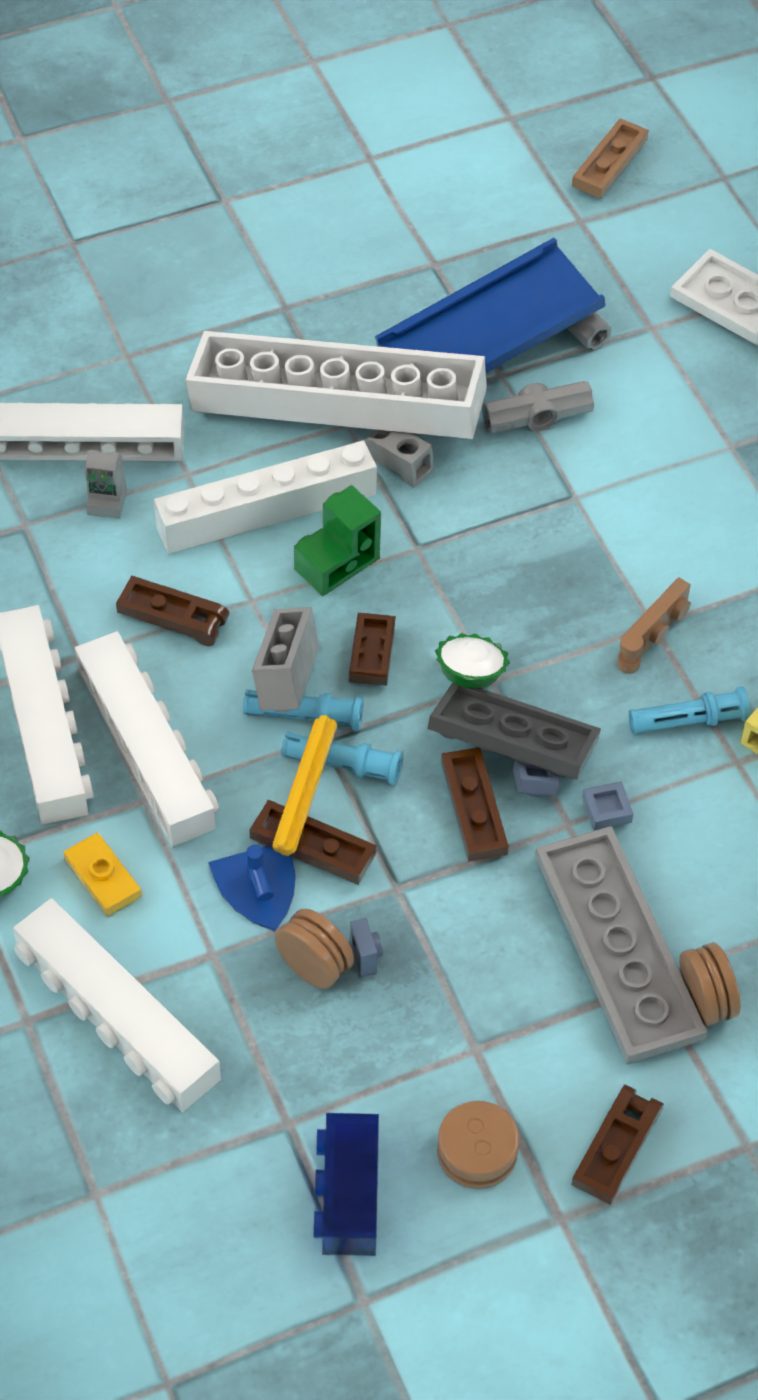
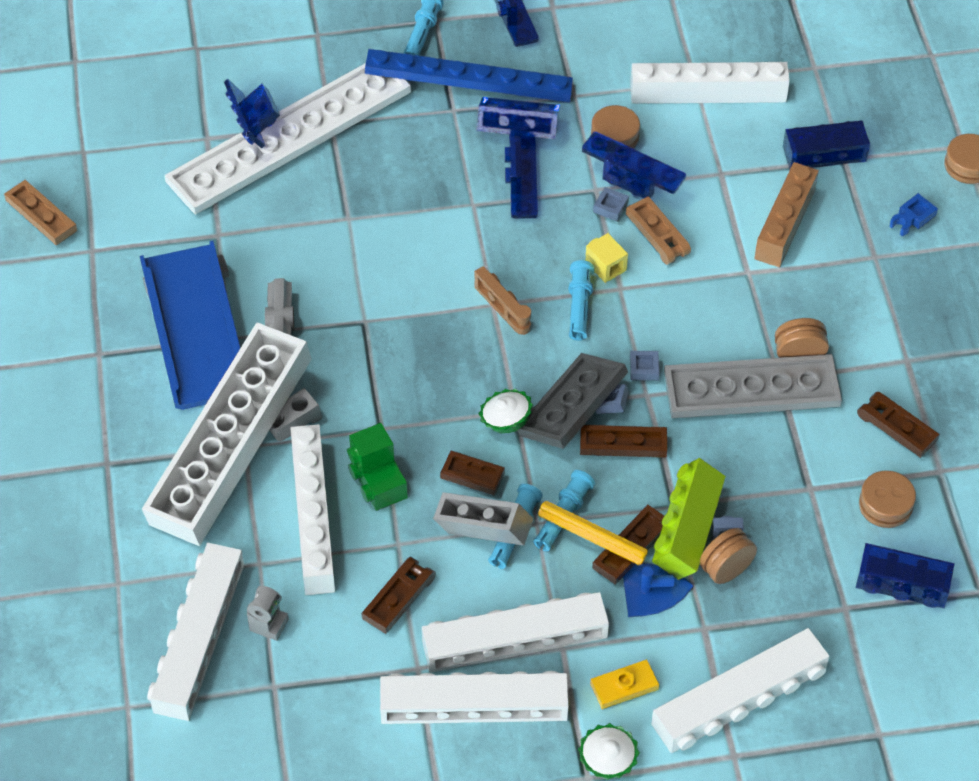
camera: 75 degrees left, 0 degrees up
(363, 892) = (688, 518): none -> lime brick

